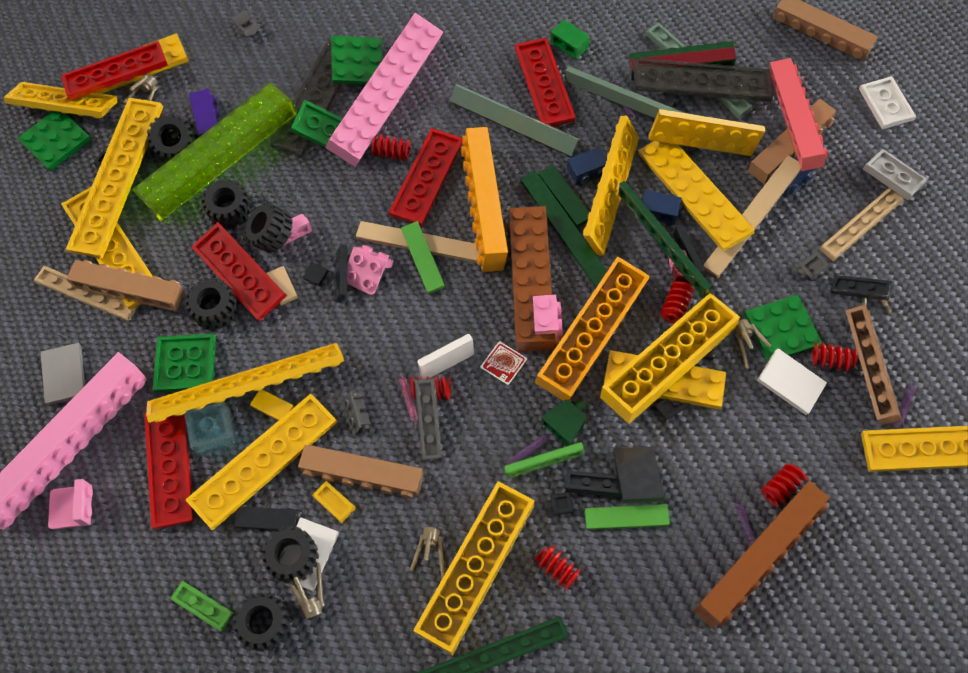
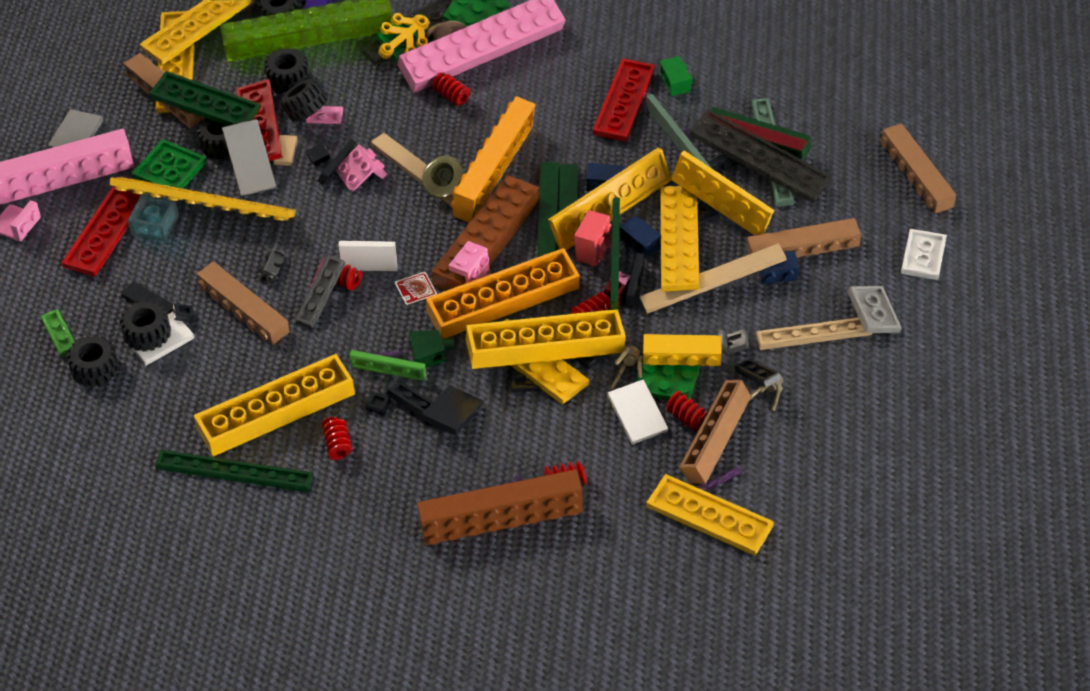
camera: 30 degrees right, 15 degrees down
(57, 281) = (115, 65): tan tile -> none
(178, 280) = (203, 100): none -> dark green plate
(260, 315) = (249, 157): none -> light grey tile
(261, 461) = (174, 259): yellow plate -> none
(271, 405) = (211, 229): yellow tile -> none
(309, 607) = (135, 369): dark tan plant -> none
(311, 514) = (183, 312): none -> black tile
(315, 114) = (405, 33): none -> yellow plant
(333, 501) = (206, 315): yellow tile -> none
(346, 95) = (443, 29): none -> dark tan hat
(422, 257) = (411, 181): bright green tile -> none
(426, 177) = (461, 125): red plate -> none
(429, 540) = (256, 373): dark tan plant -> none
(453, 239) = (442, 176): none -> olive hat
(514, 120) = (573, 116): sand green tile -> none
(627, 517) = (421, 437): bright green tile -> none
(628, 231) = (593, 238): none -> coral brick
(787, 301) = (682, 350): none -> yellow brick
(797, 115) = (817, 217): coral brick -> none

